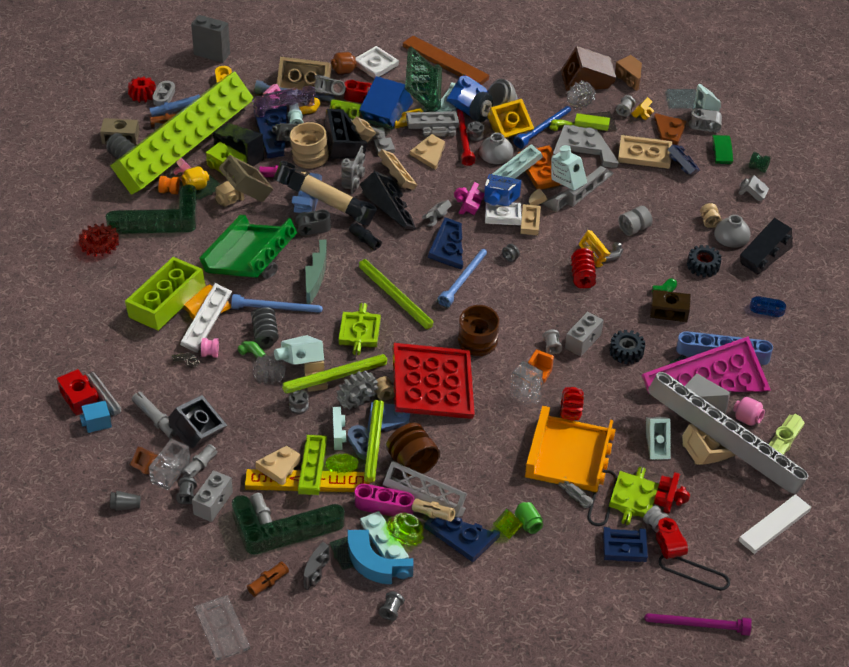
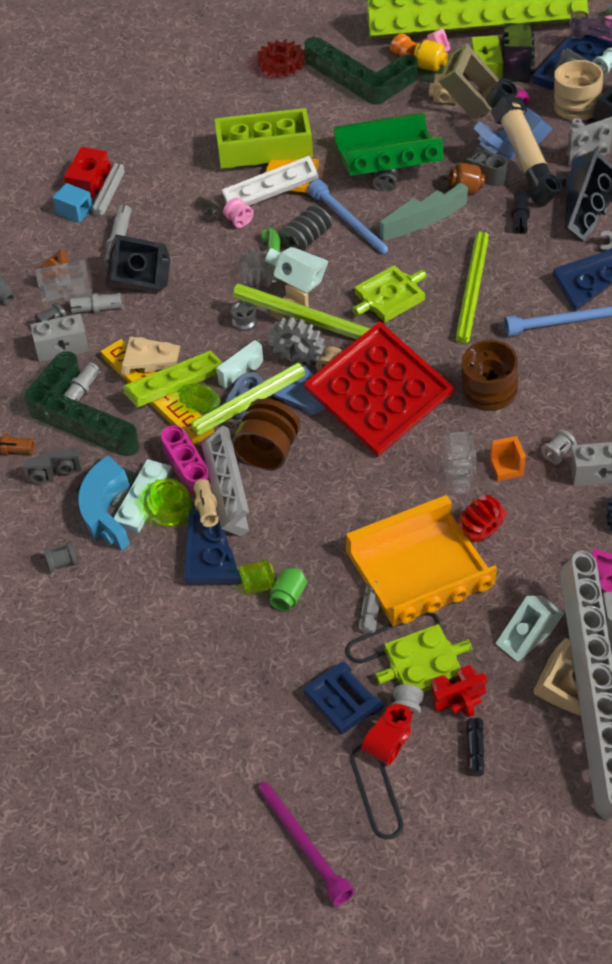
camera: 55 degrees right, 5 degrees up
(311, 235) = (468, 175): none -> dark orange head
(708, 512) = (475, 747): none -> black axle
(774, 524) = (531, 826): white tile -> none

